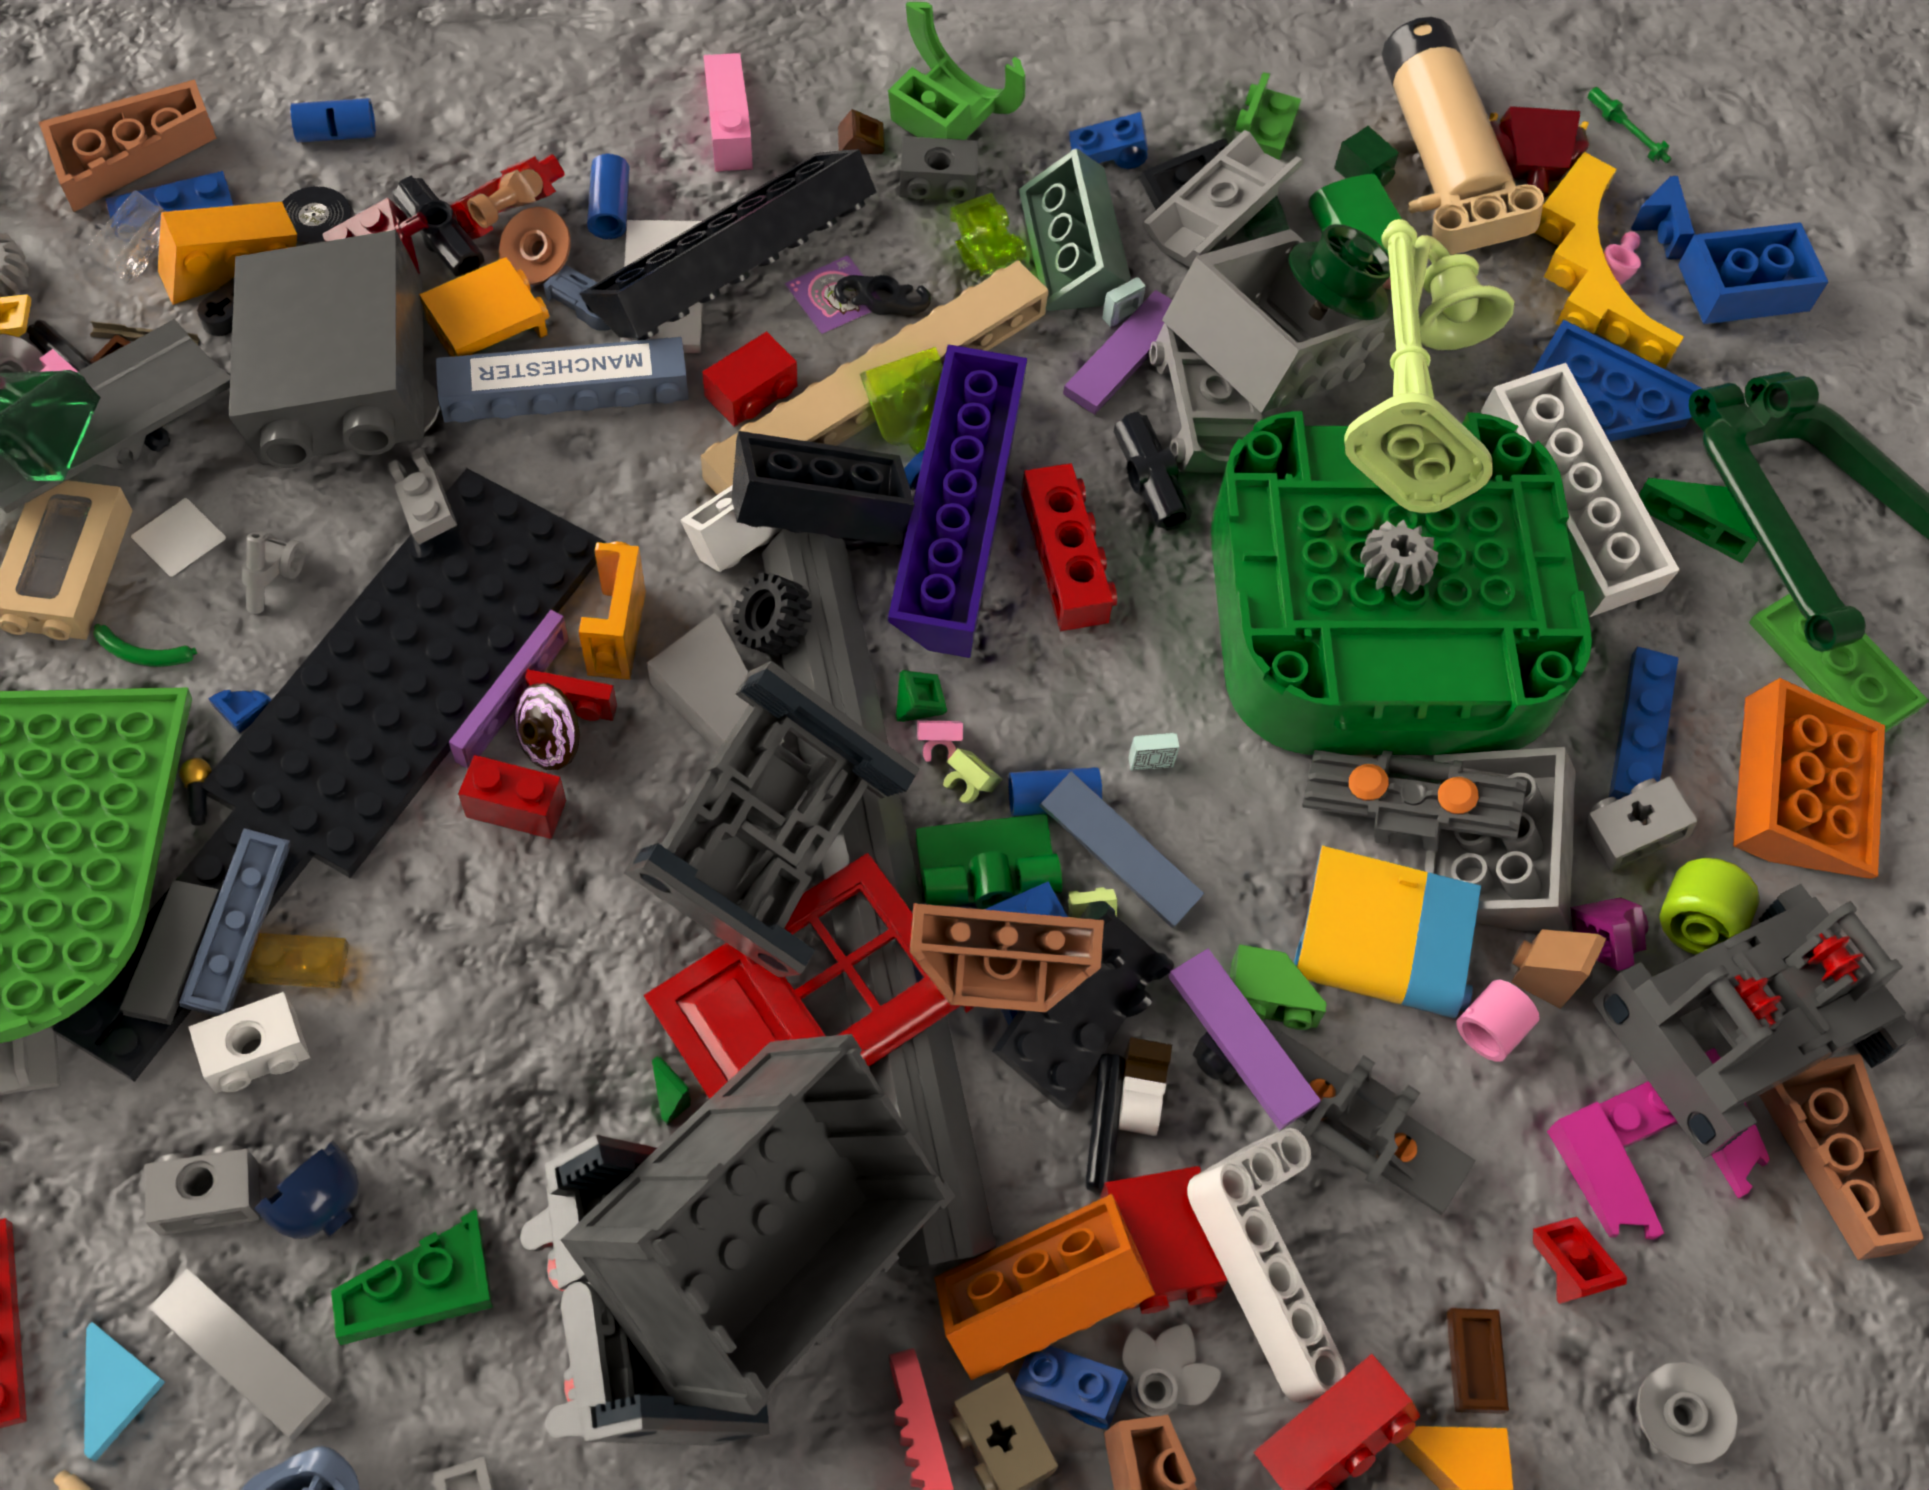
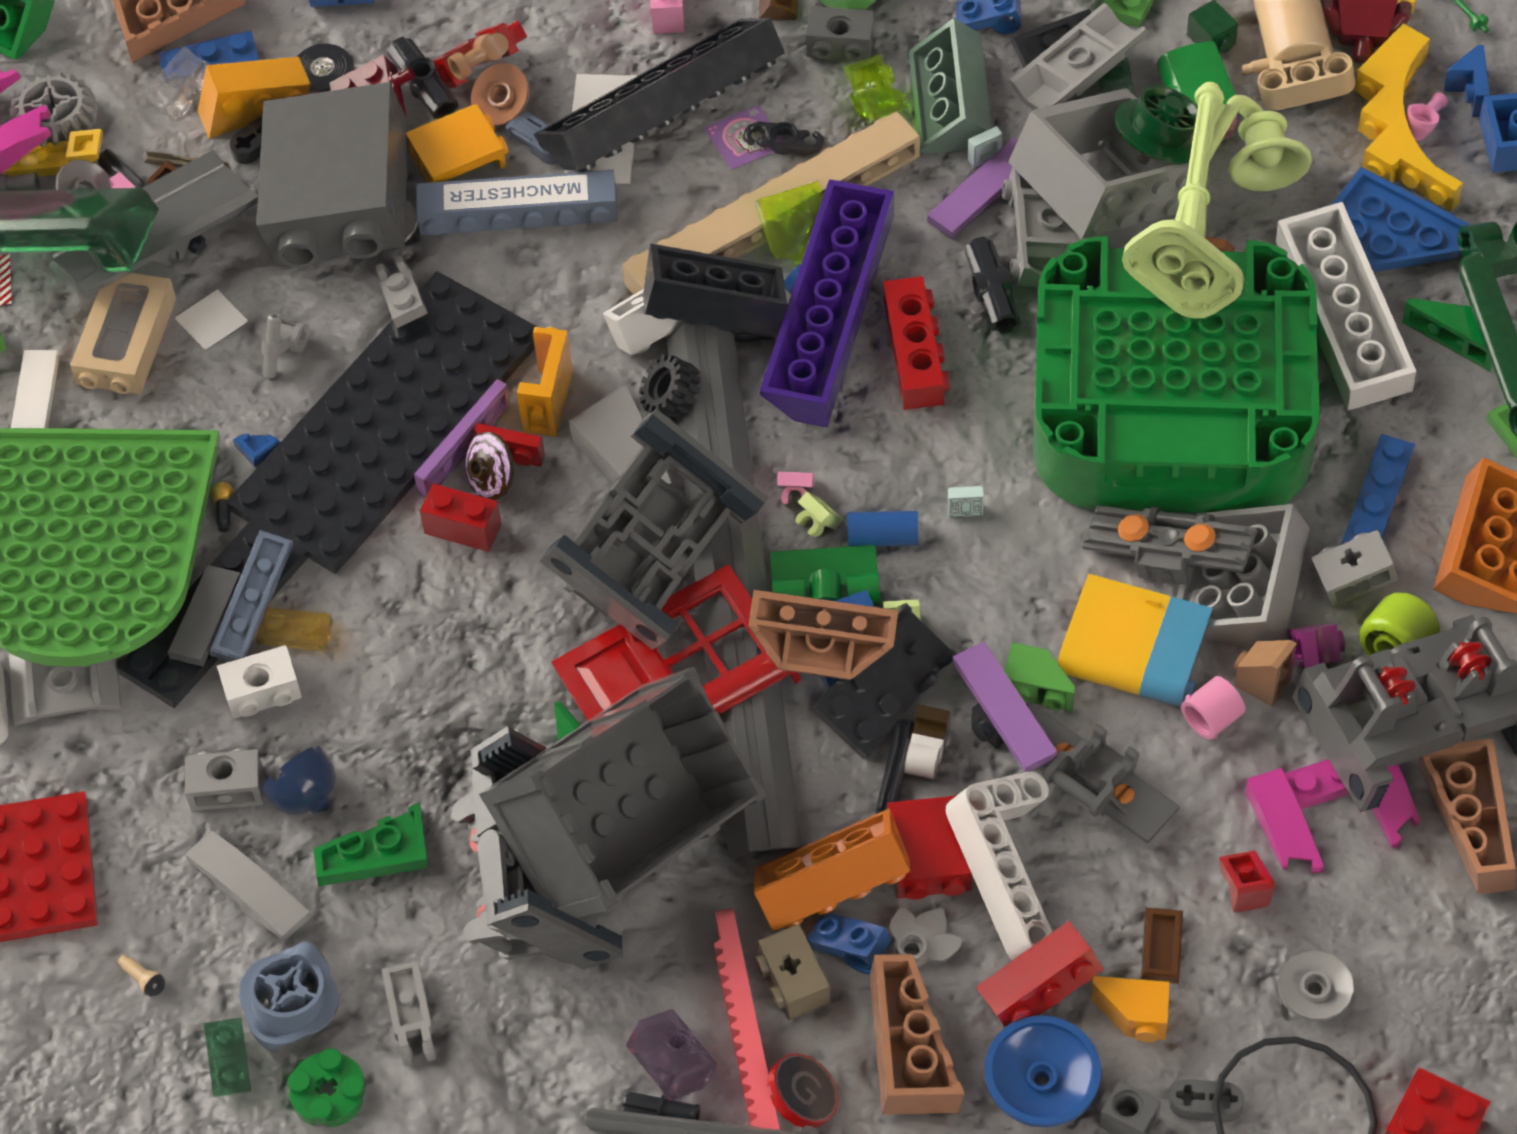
camera: 15 degrees right, 5 degrees down
(114, 1390) = (160, 906): medium azure tile -> none
(138, 655) = (182, 407): green piece -> none
(608, 196) = (562, 54): blue pin -> none
(750, 379) = (667, 204): red brick -> none
(919, 696) = (783, 455): green slope -> none
(1121, 849) = (929, 571): sand blue tile -> none
(1399, 557) = (1165, 351): light grey gear -> none

